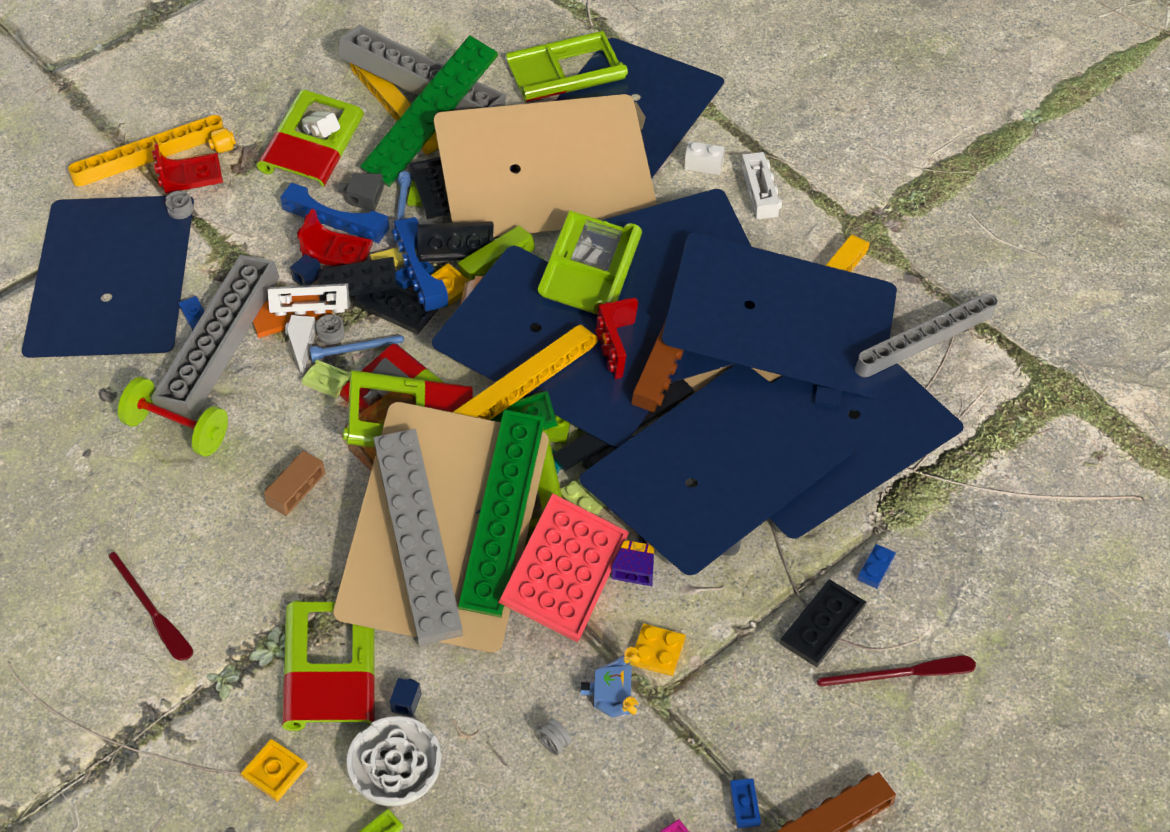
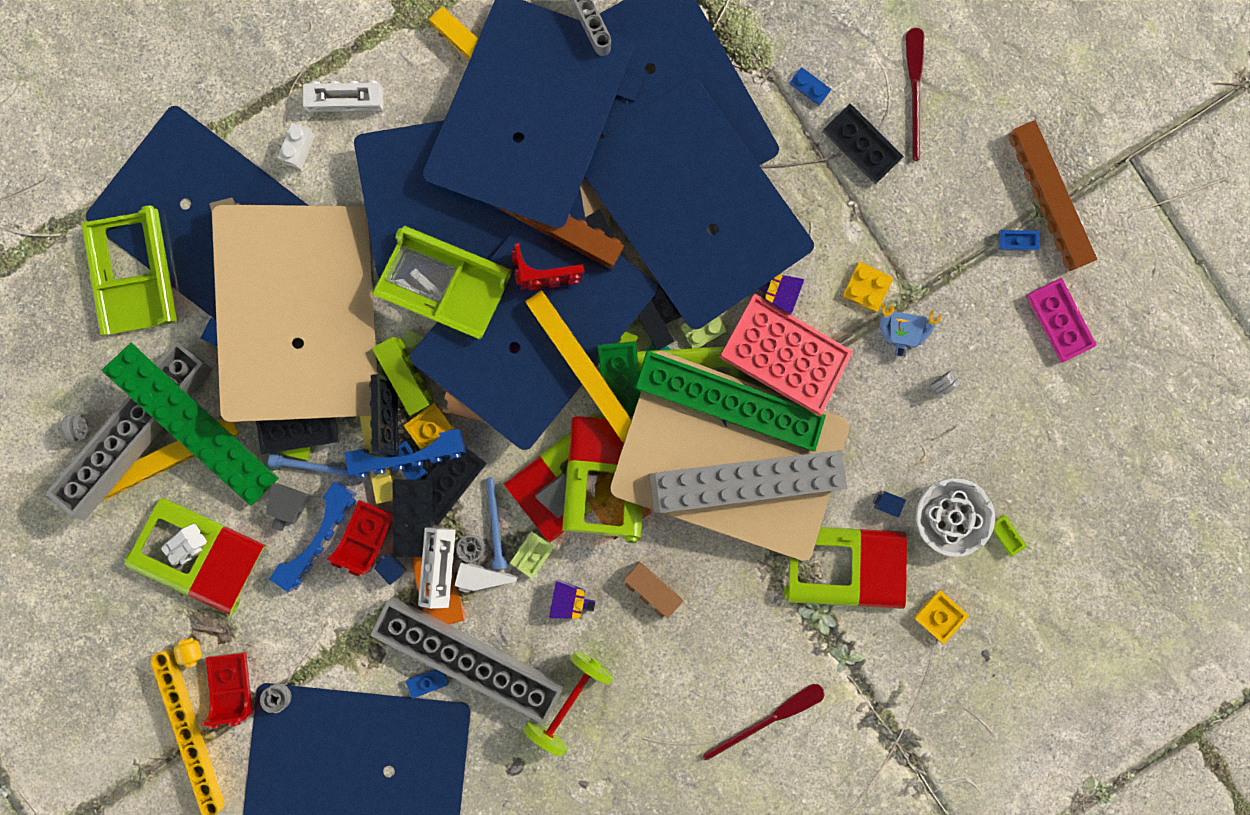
camera: 80 degrees left, 35 degrees up
(280, 412) = (569, 601): none -> dark purple torso
(422, 45) = (76, 427): none -> light grey wheel

